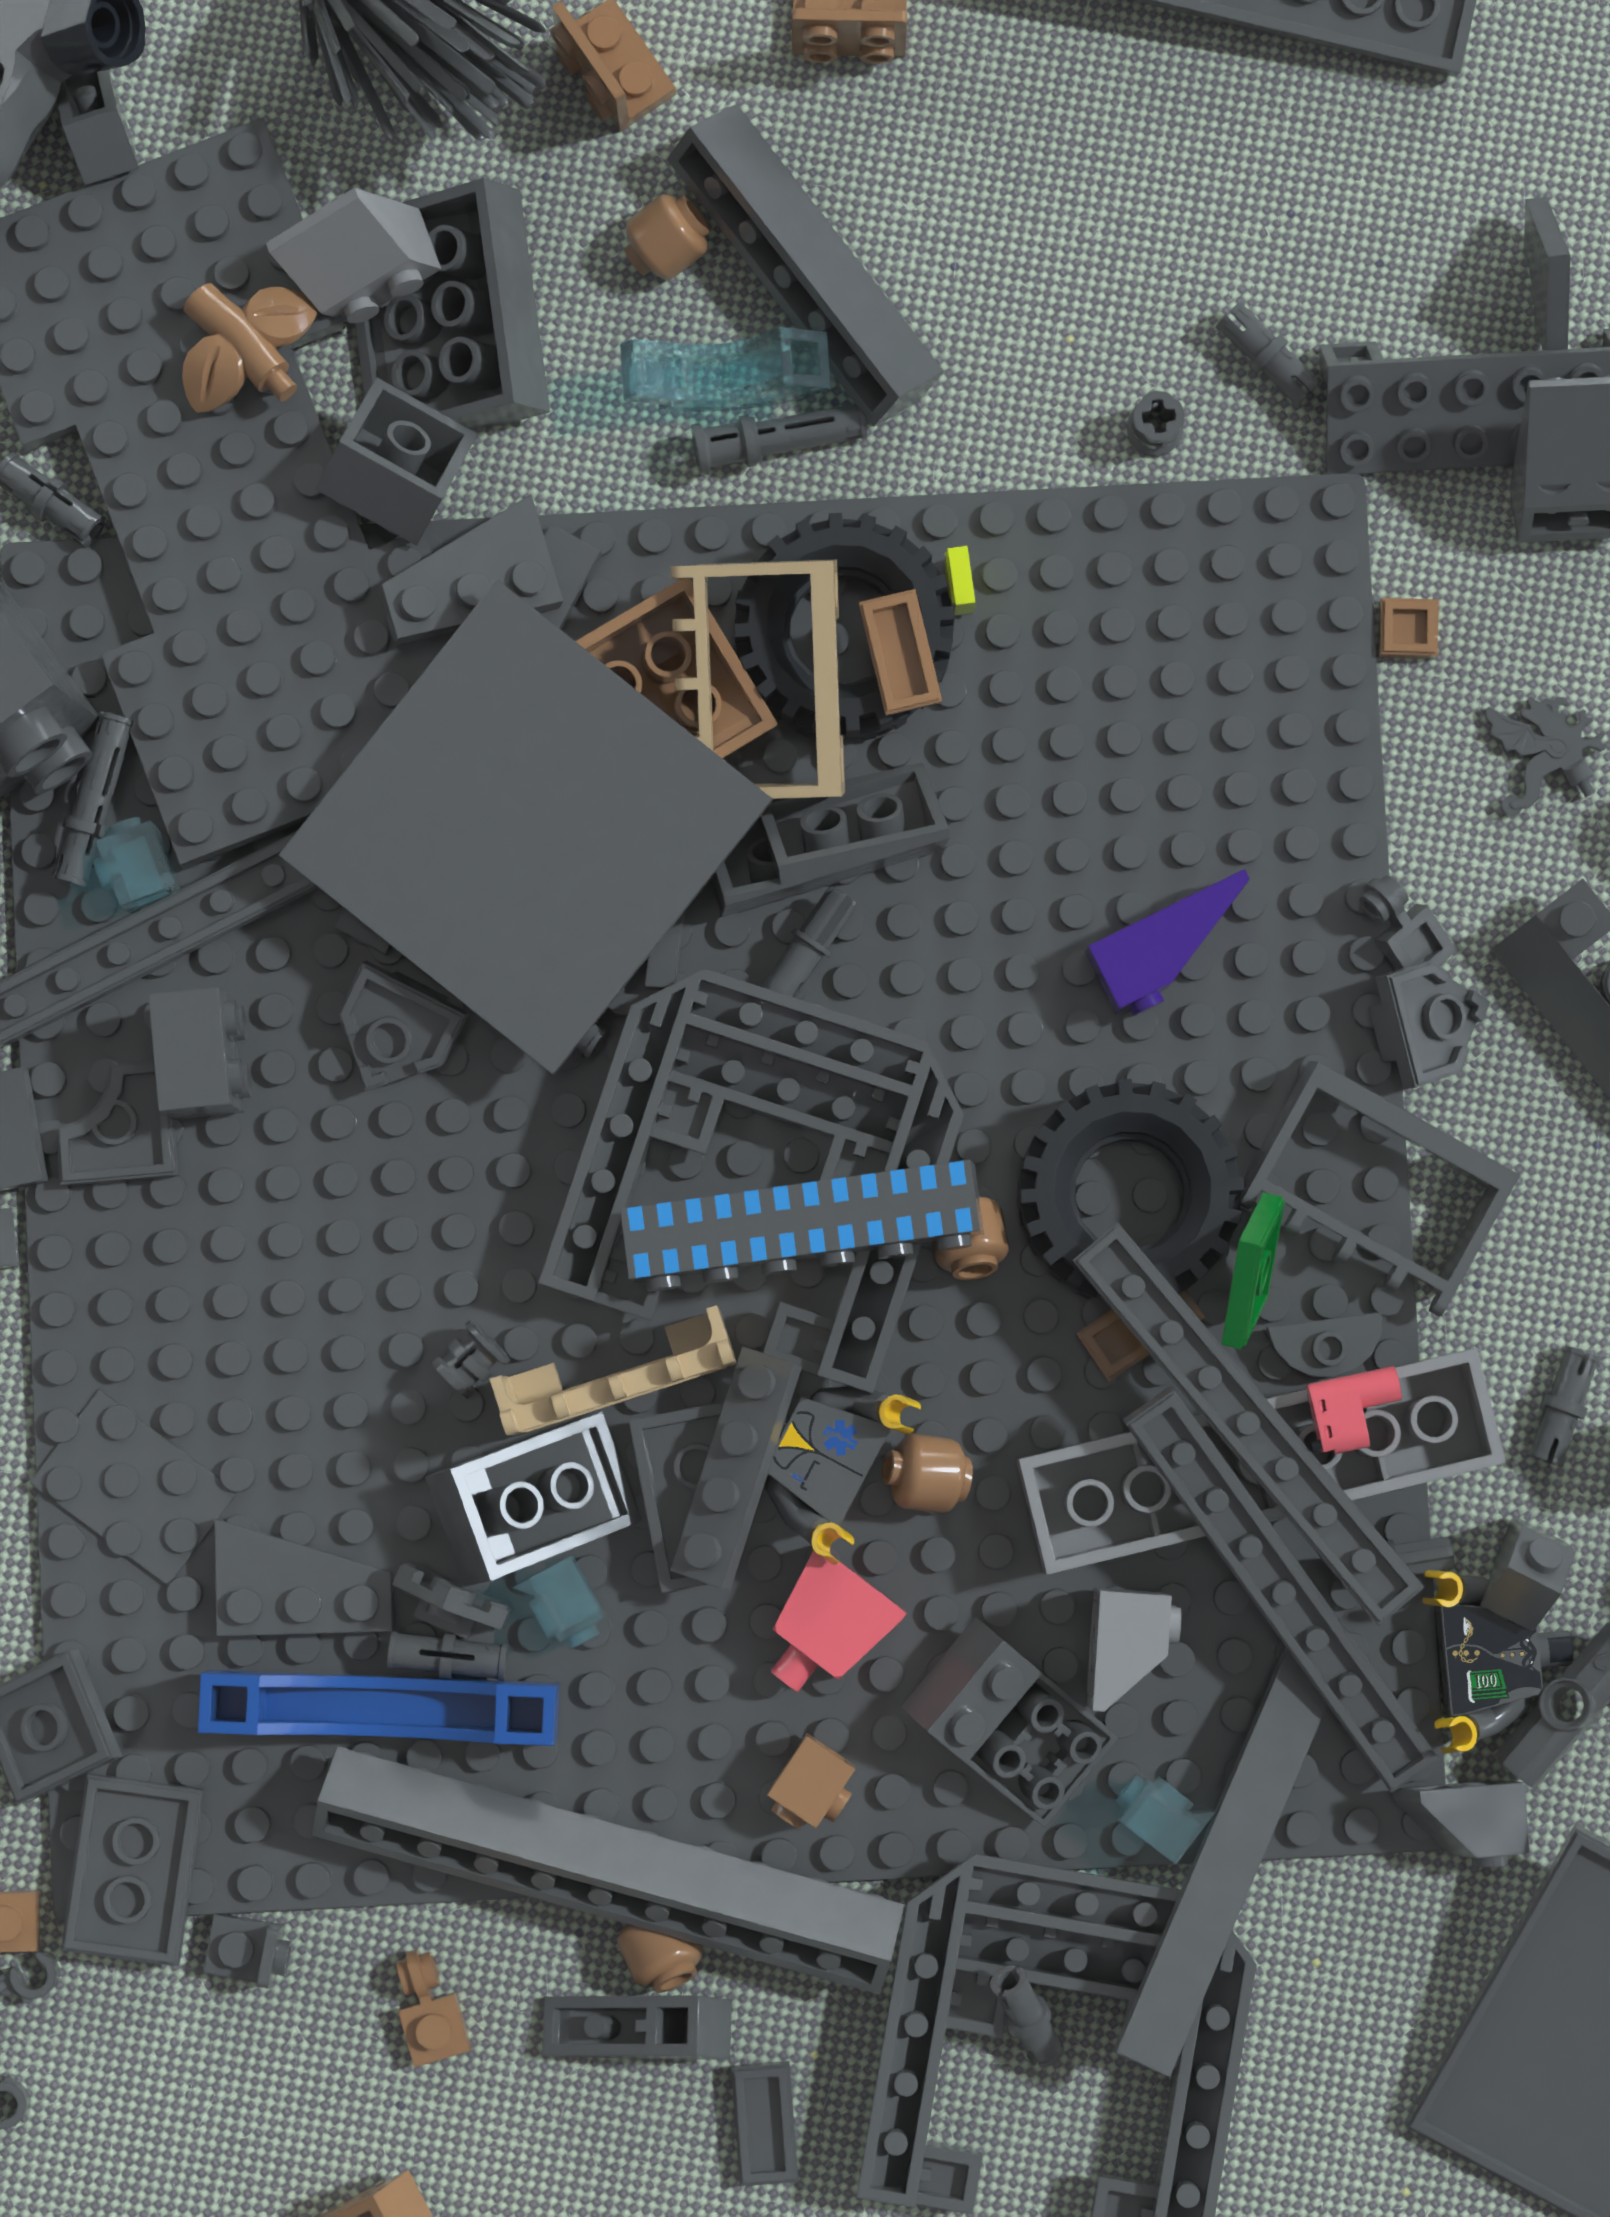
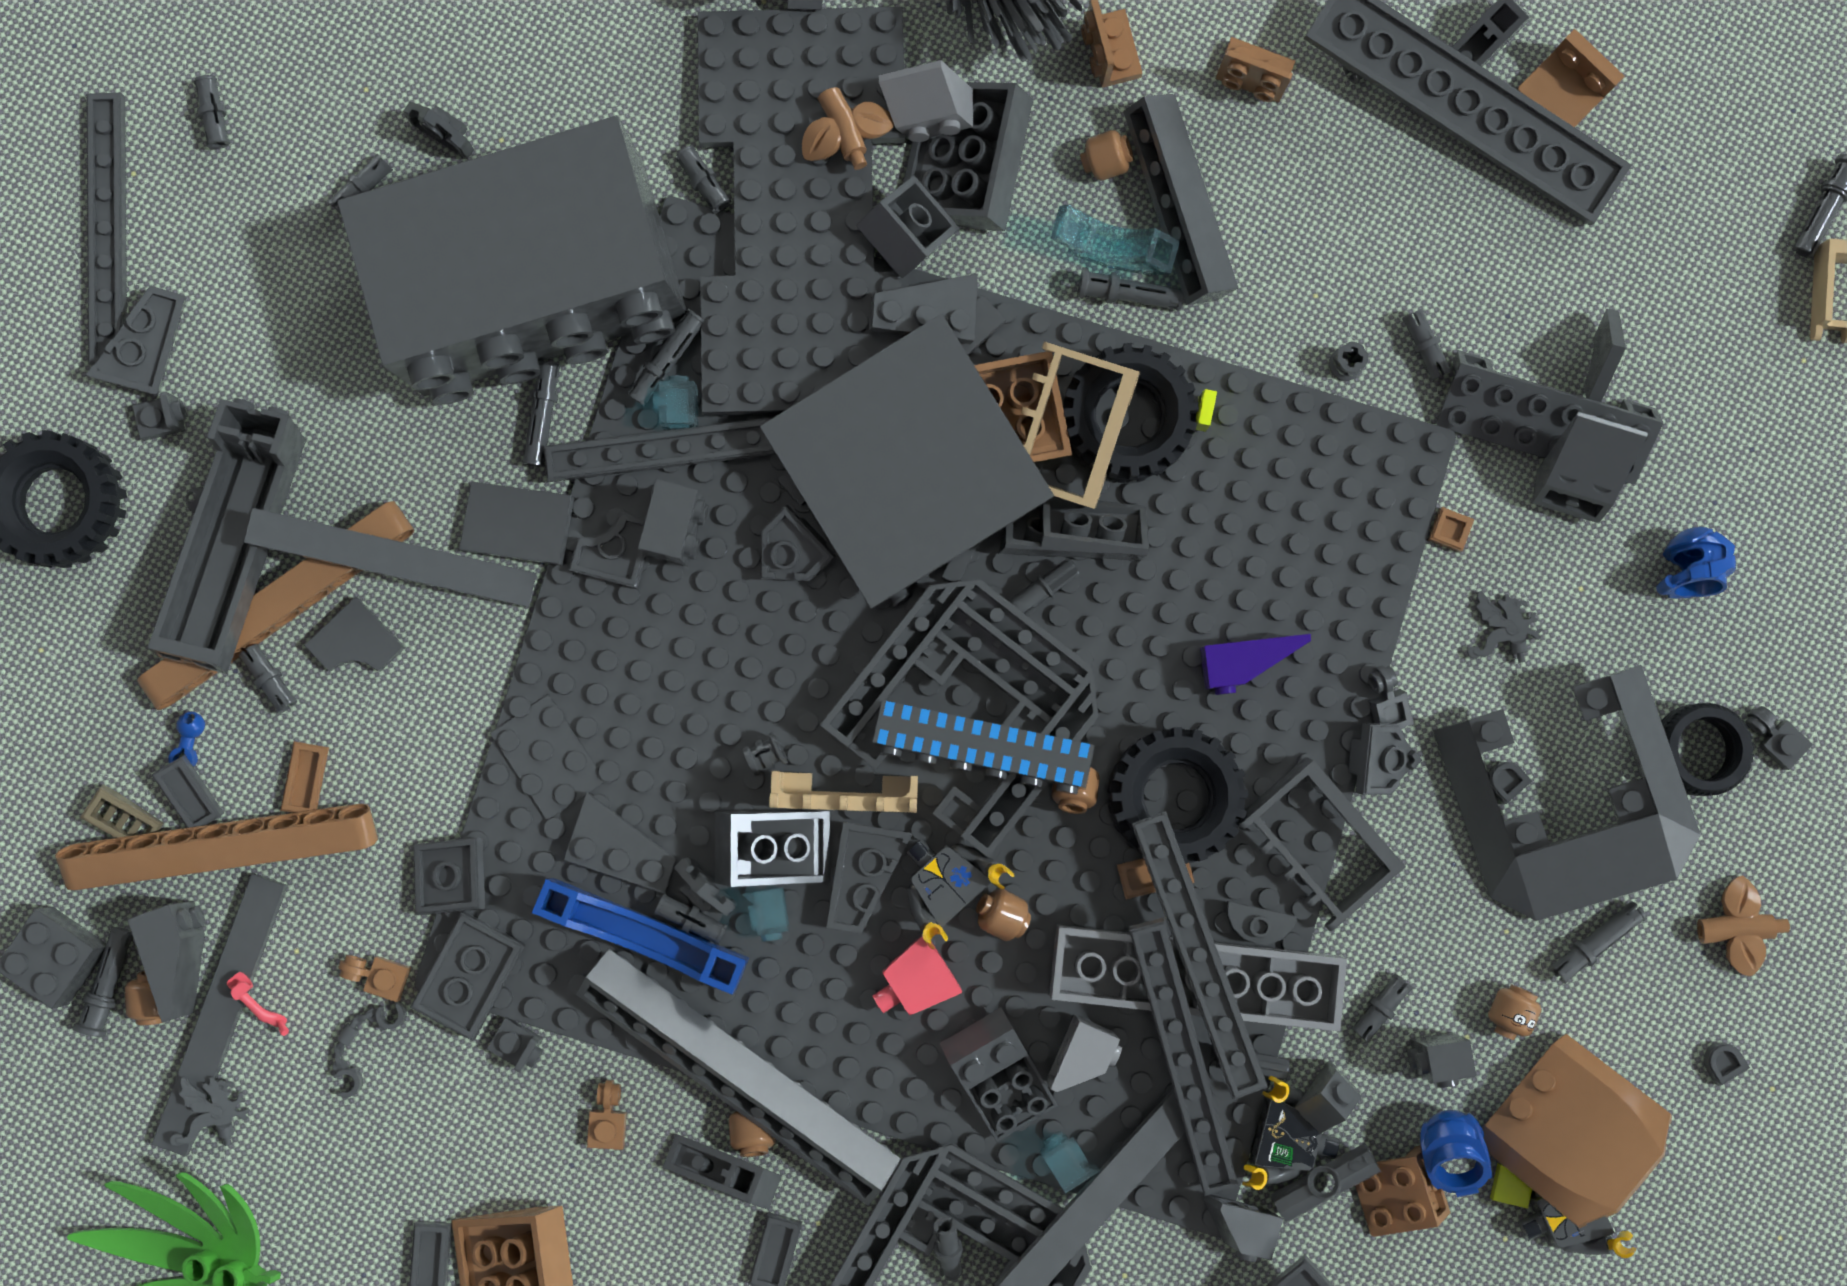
camera: 15 degrees right, 0 degrees up
(736, 1468) = (894, 872): dark grey plate -> none
(811, 1784) = (872, 1069): medium nougat brick -> none
(900, 652) = (1157, 438): medium nougat tile -> none
(1253, 1270) = (1233, 867): green tile -> none
(1340, 1403) = (1255, 965): coral piece -> none

